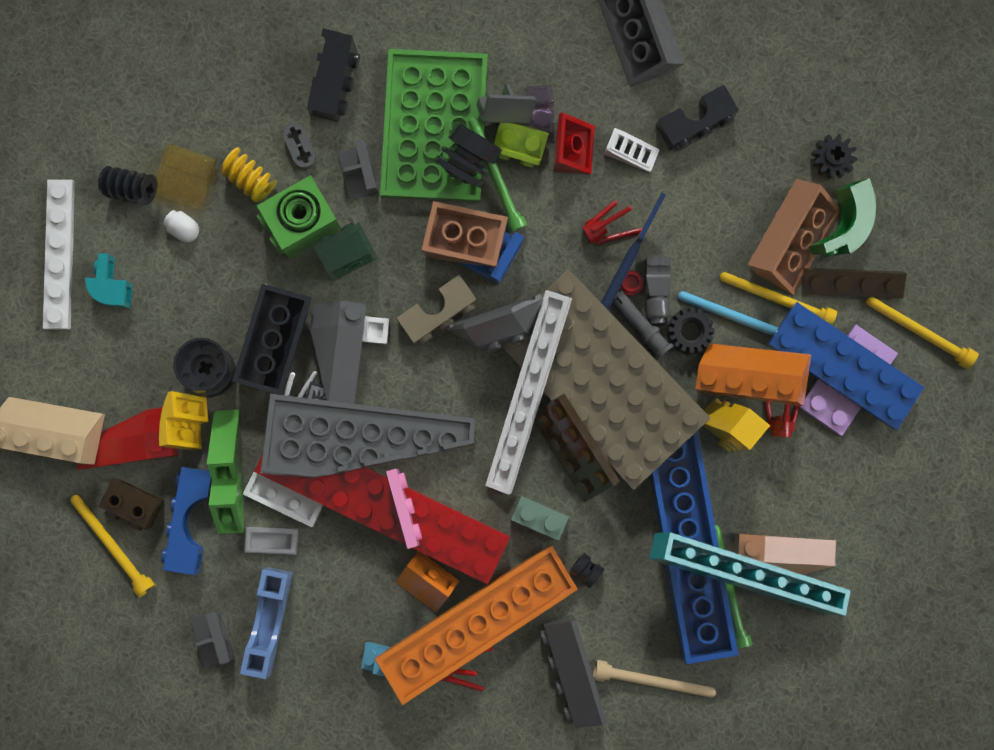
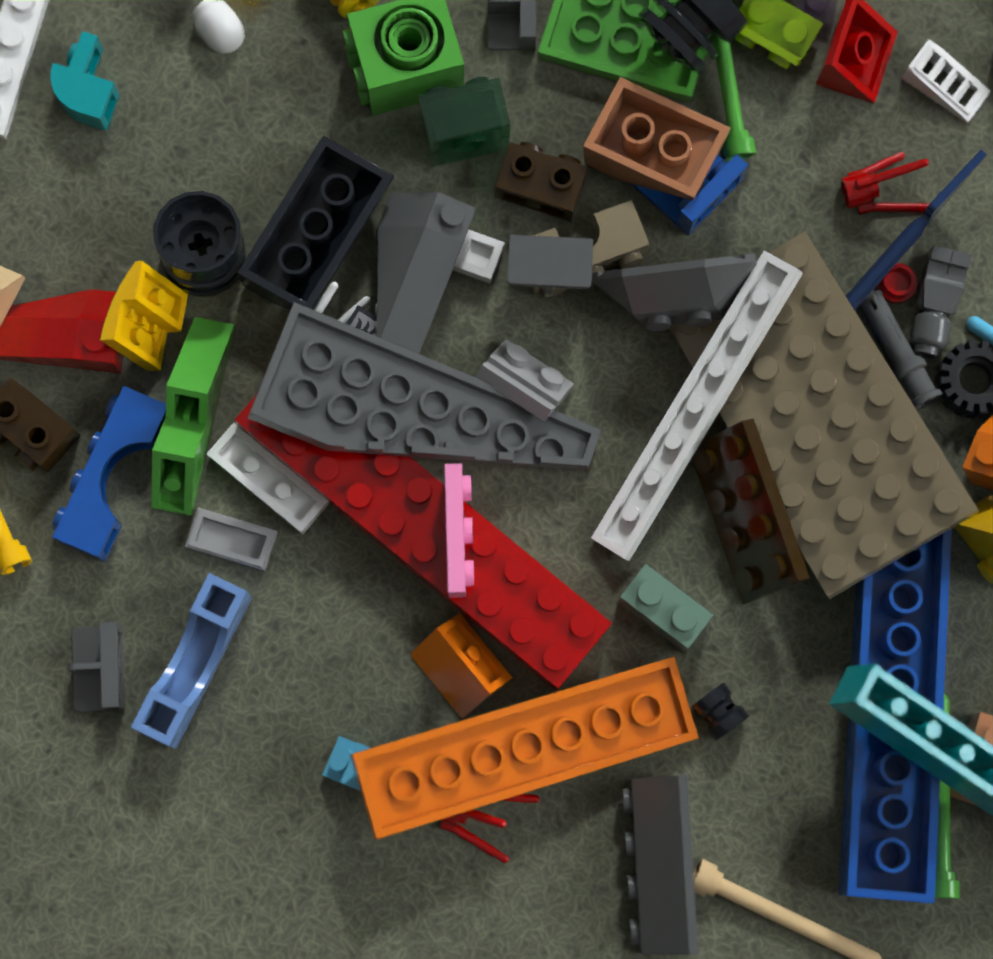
camera: 15 degrees right, 5 degrees down
(401, 274) = (541, 180): none -> dark brown brick
(418, 329) = (550, 262): none -> dark grey panel
(422, 400) = (525, 379): none -> light grey plate

